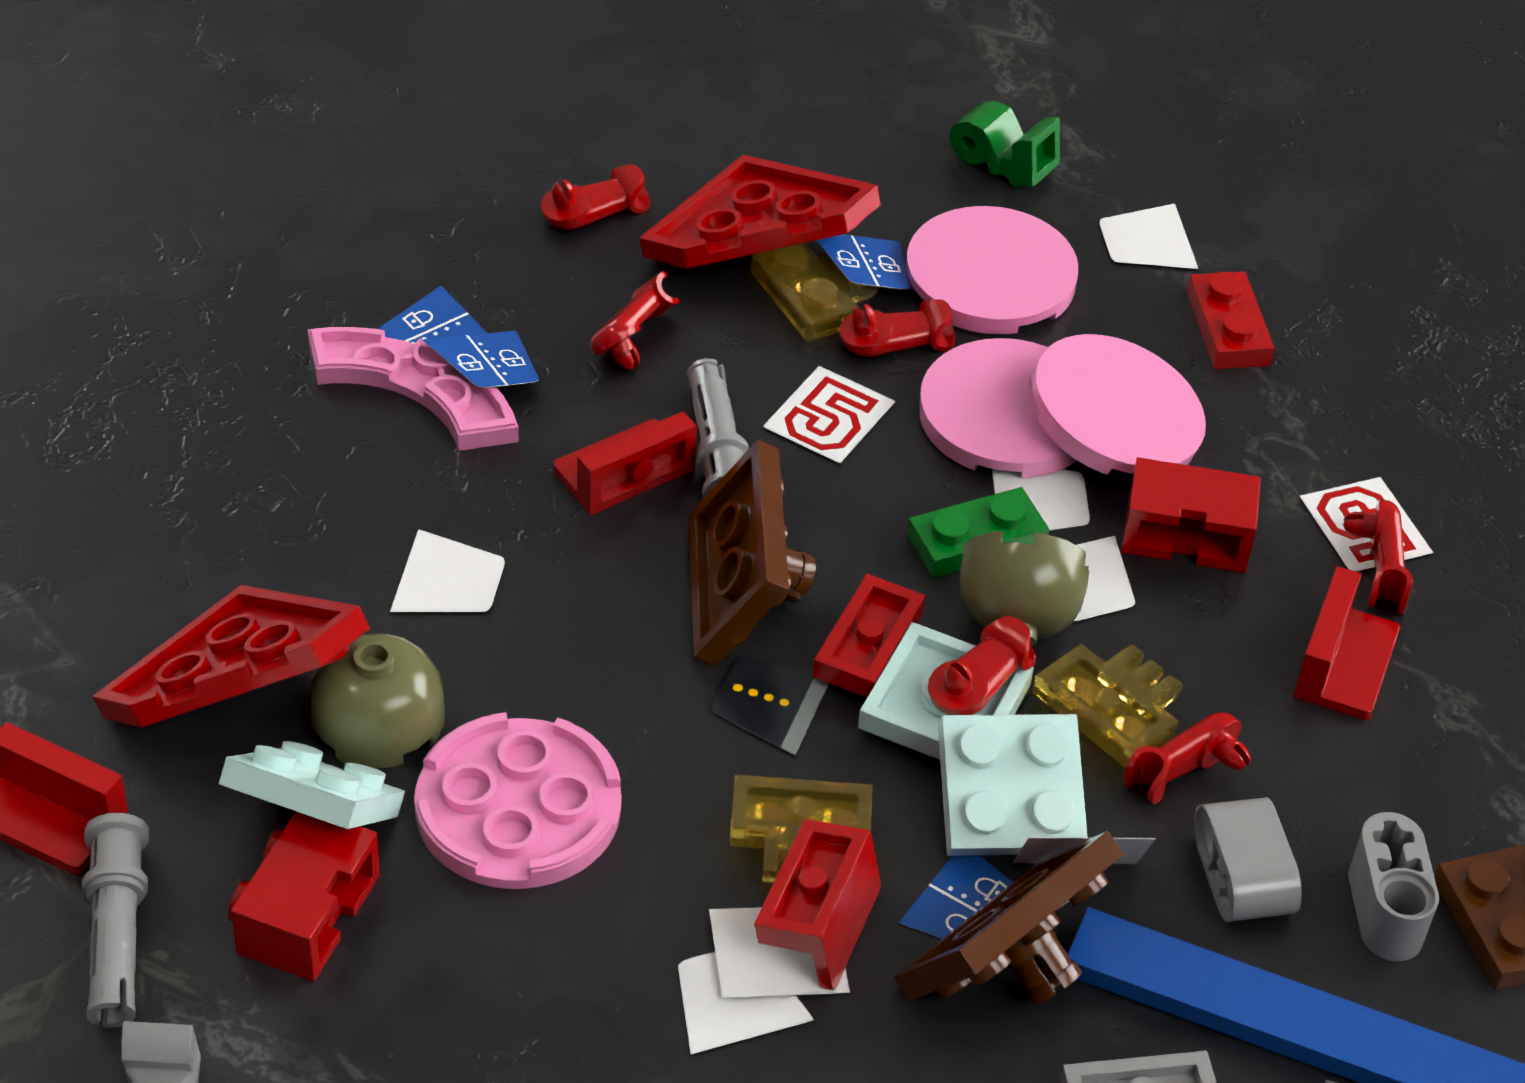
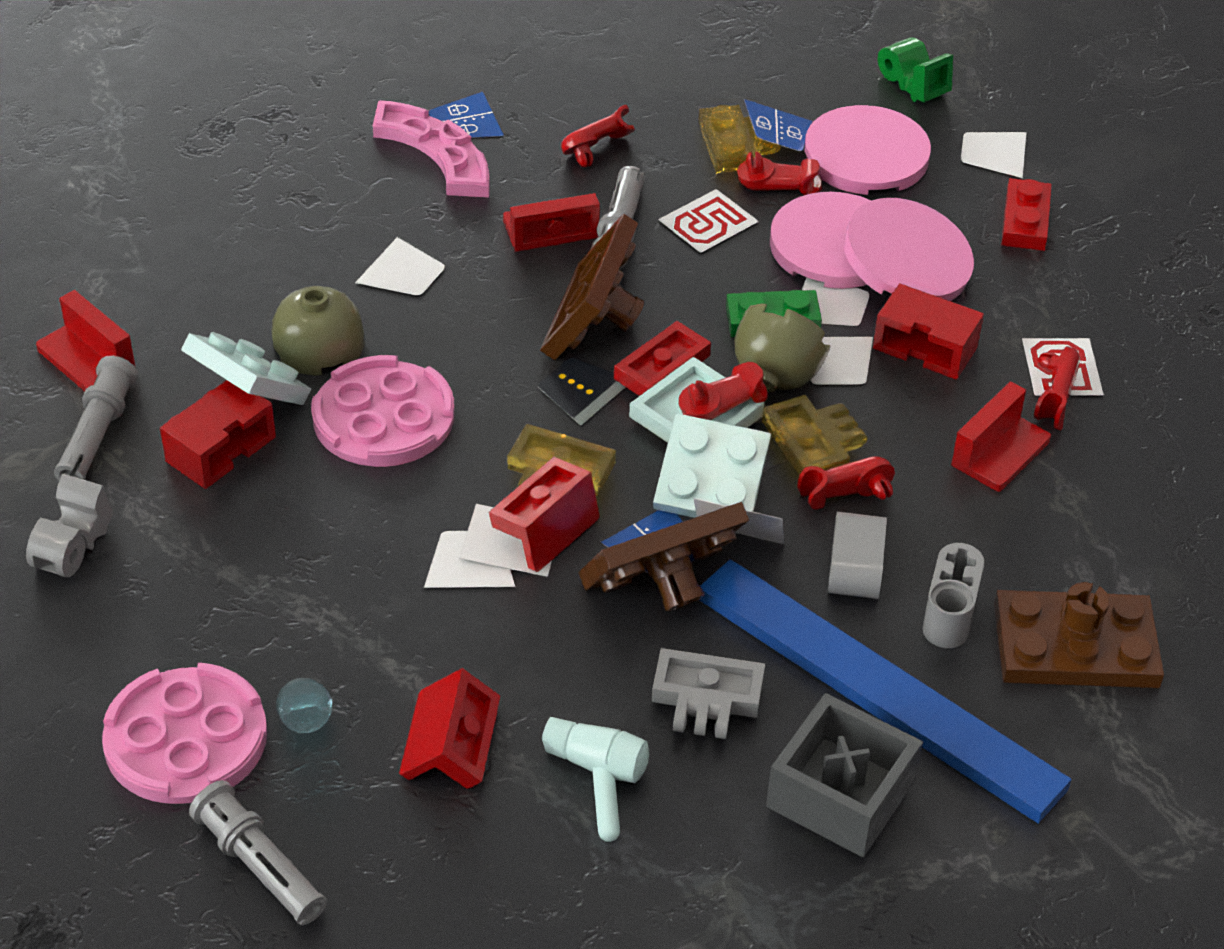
camera: 20 degrees right, 0 degrees up
(230, 650) = (230, 281): red plate -> none
(487, 358) = (488, 140): blue sticker -> none
(577, 206) = (593, 57): red piece -> none
(758, 209) = (712, 79): red plate -> none

